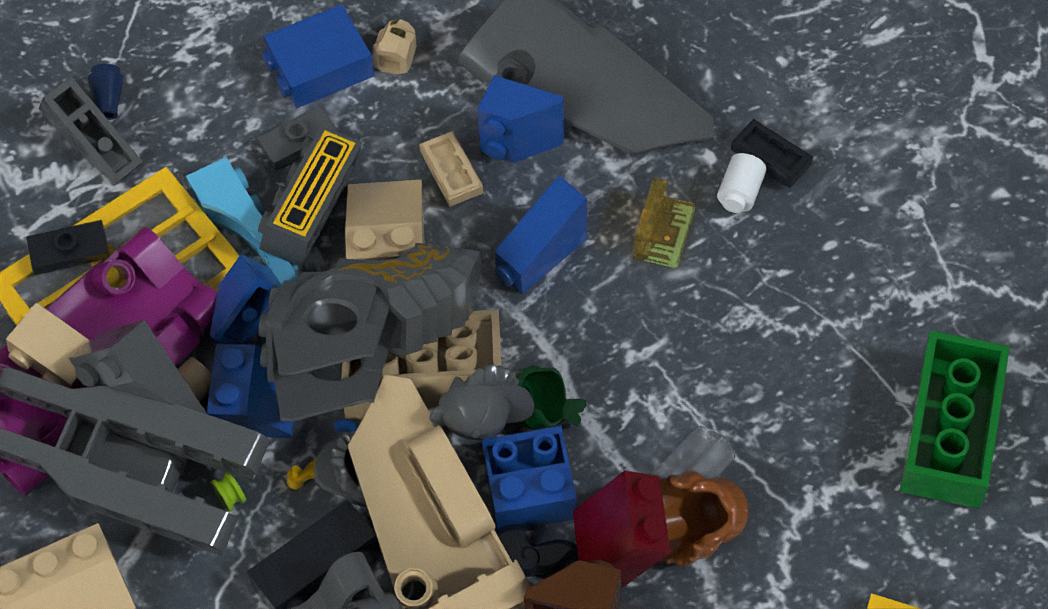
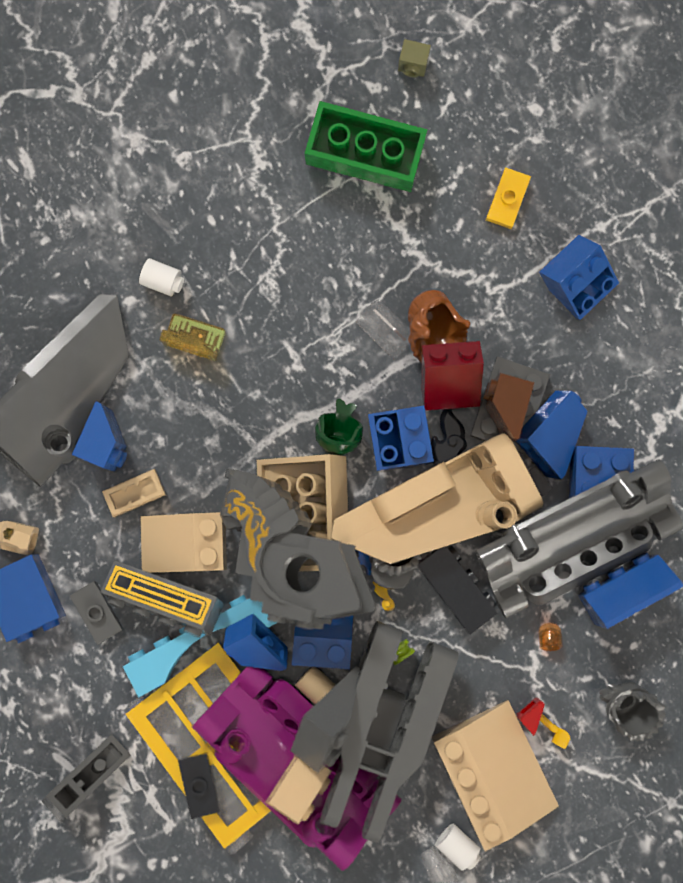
camera: 90 degrees left, 25 degrees up
(106, 88) = (43, 768): dark blue cone -> none
(483, 404) = (360, 468): dark grey hair -> none
(543, 236) = (206, 425): blue slope -> none
(781, 157) = (133, 253): black plate -> none

